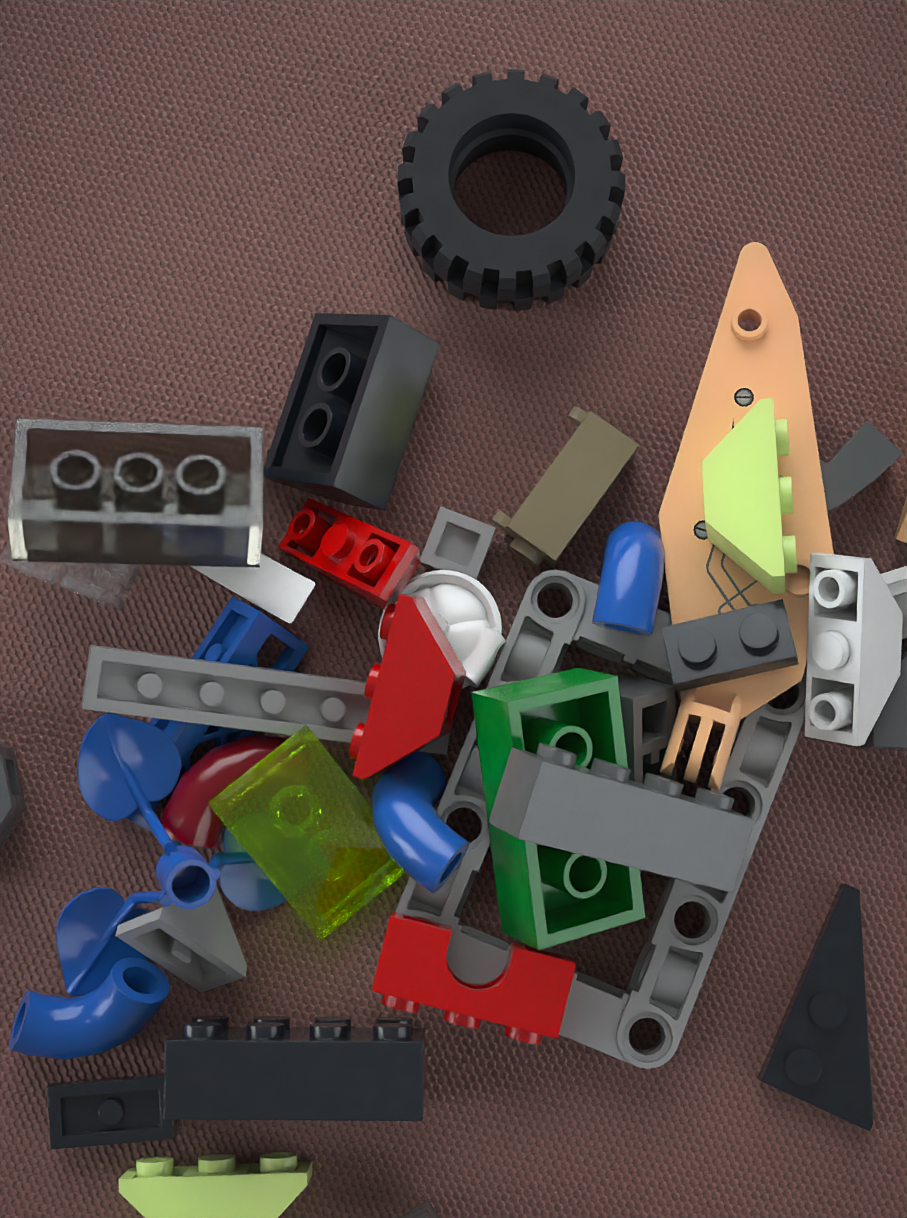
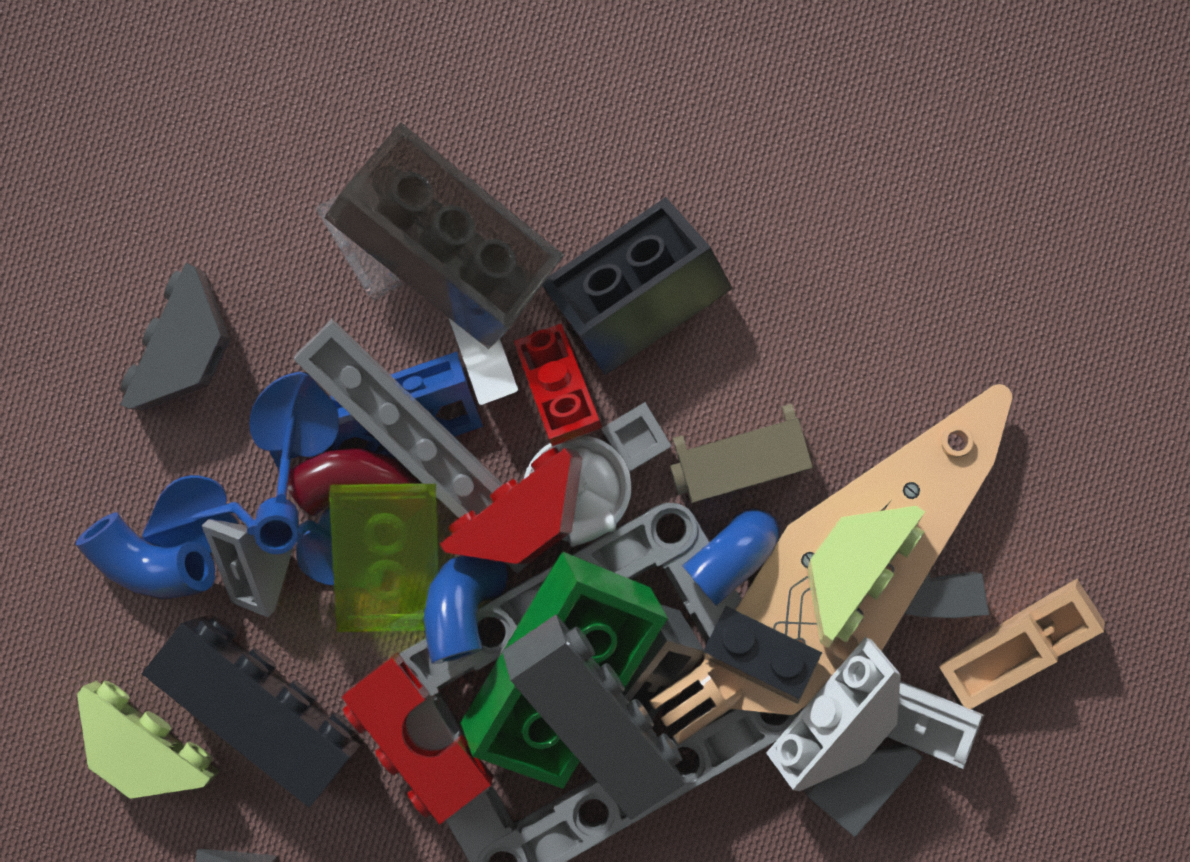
camera: 35 degrees right, 5 degrees up
(108, 1111) = (110, 634): black plate -> none
(526, 119) = (907, 165): black tyre -> none

